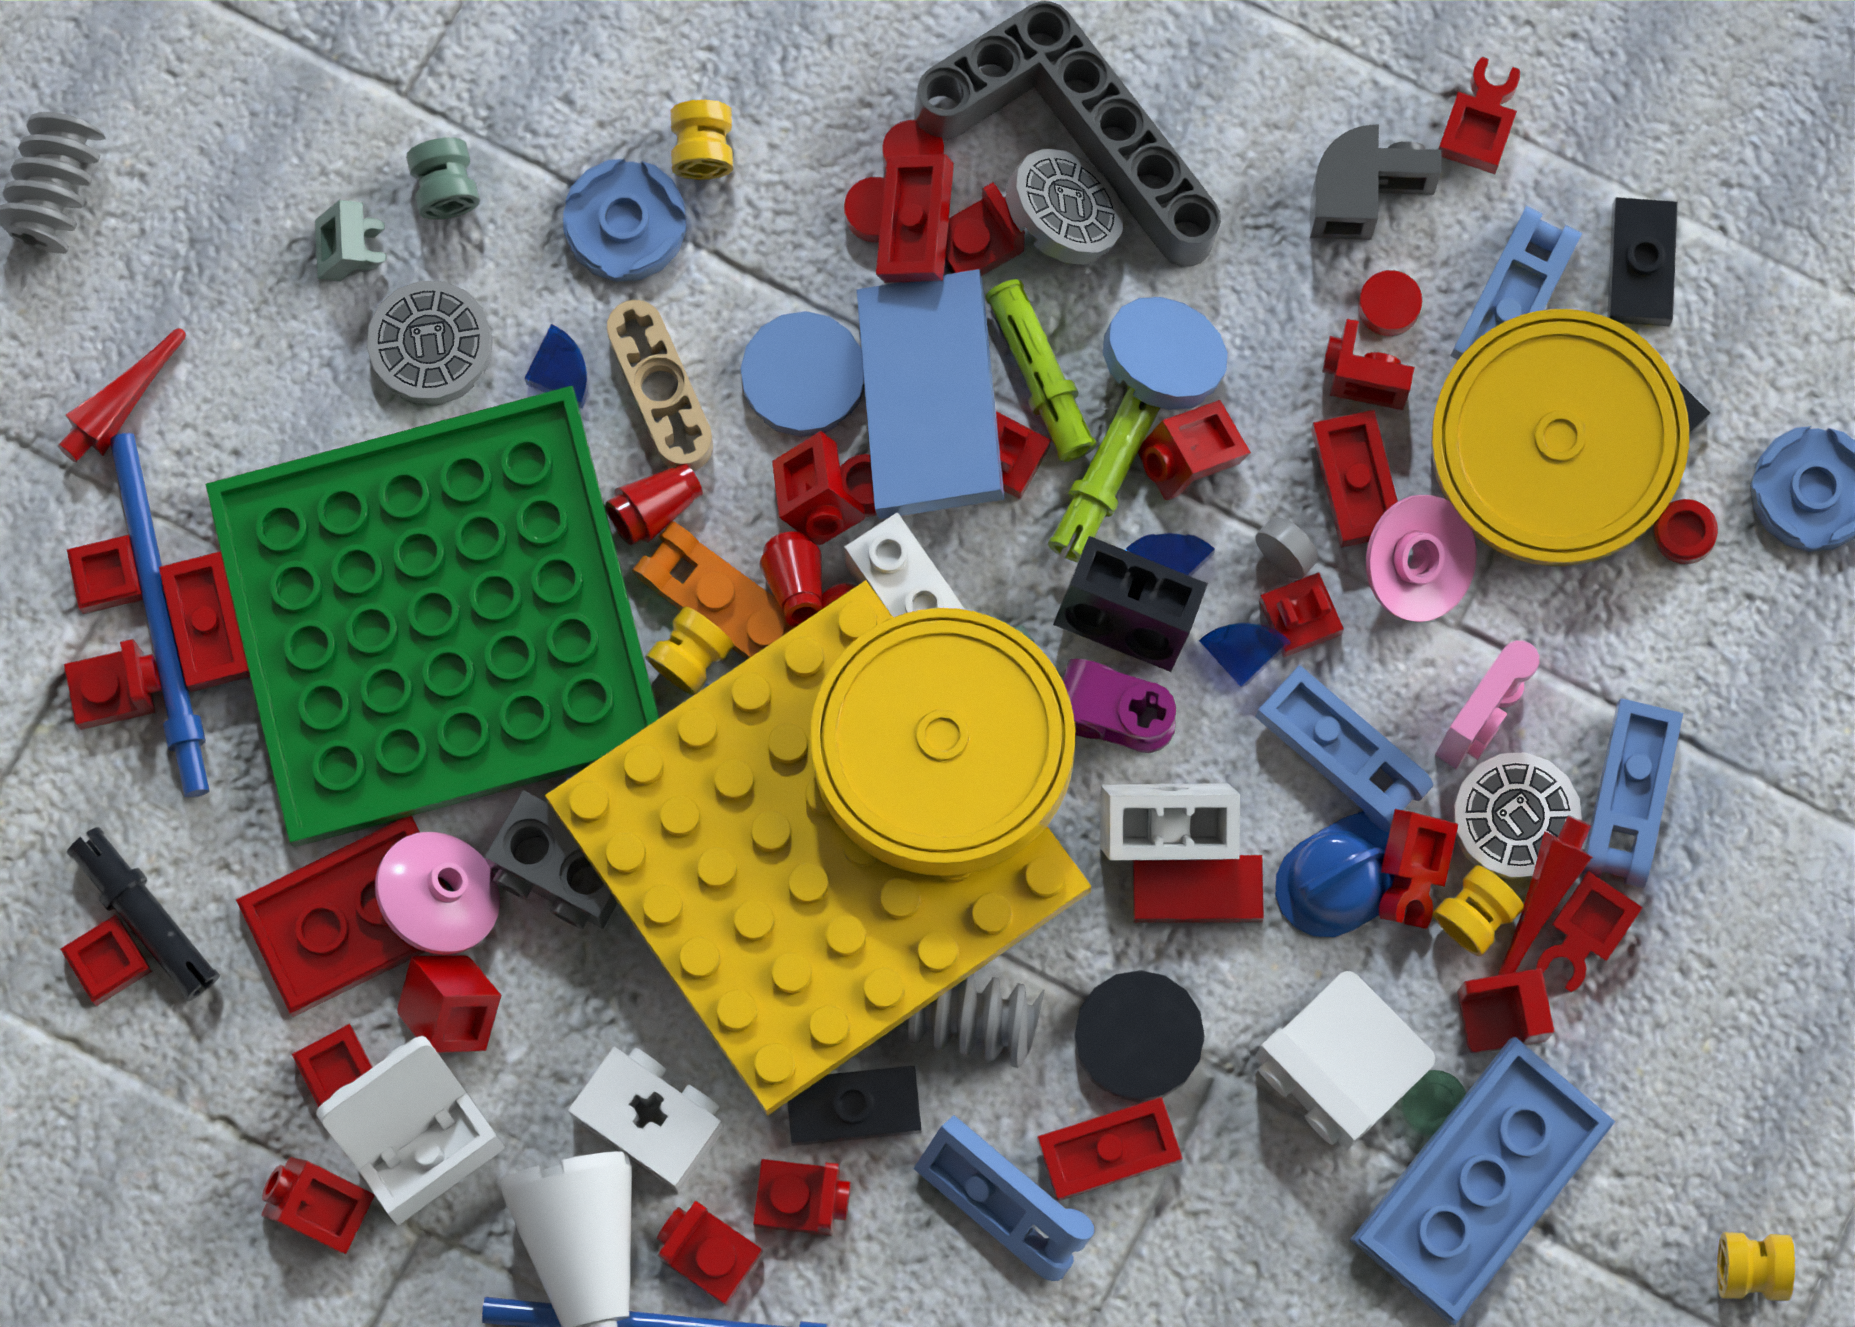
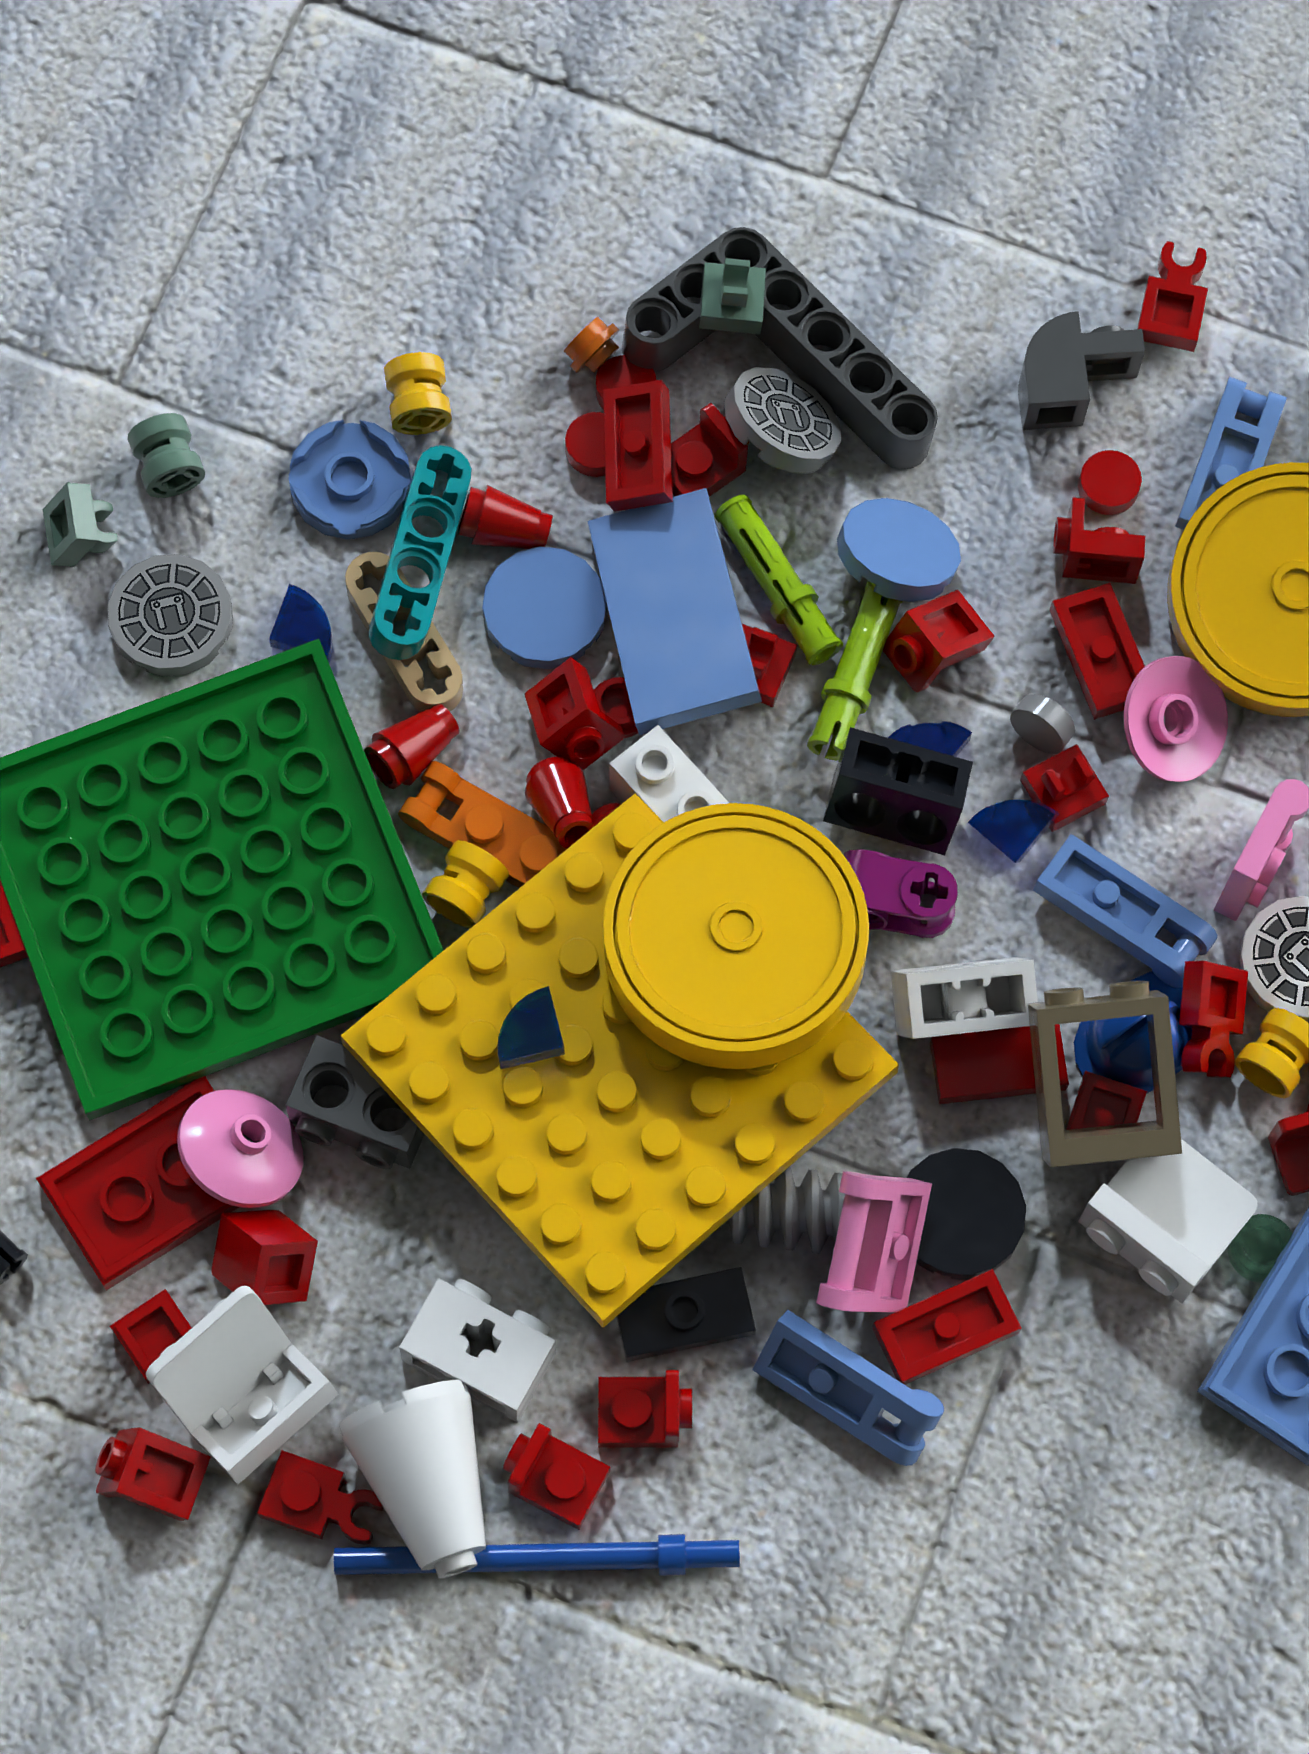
camera: 10 degrees left, 5 degrees down
(466, 1244) = (308, 1497): none -> red plate
(682, 304) = (420, 551): none -> teal beam
(729, 814) = (530, 1031): none -> tile
(772, 280) = (503, 521): none -> red cone
(883, 108) = (592, 346): none -> orange plate
(1027, 76) = (732, 296): none -> sand green tile
(1061, 1063) = (875, 1243): none -> bright pink plate
(1295, 983) = (1109, 1142): none -> dark tan window
(1297, 950) = (1105, 1103): none -> red tile

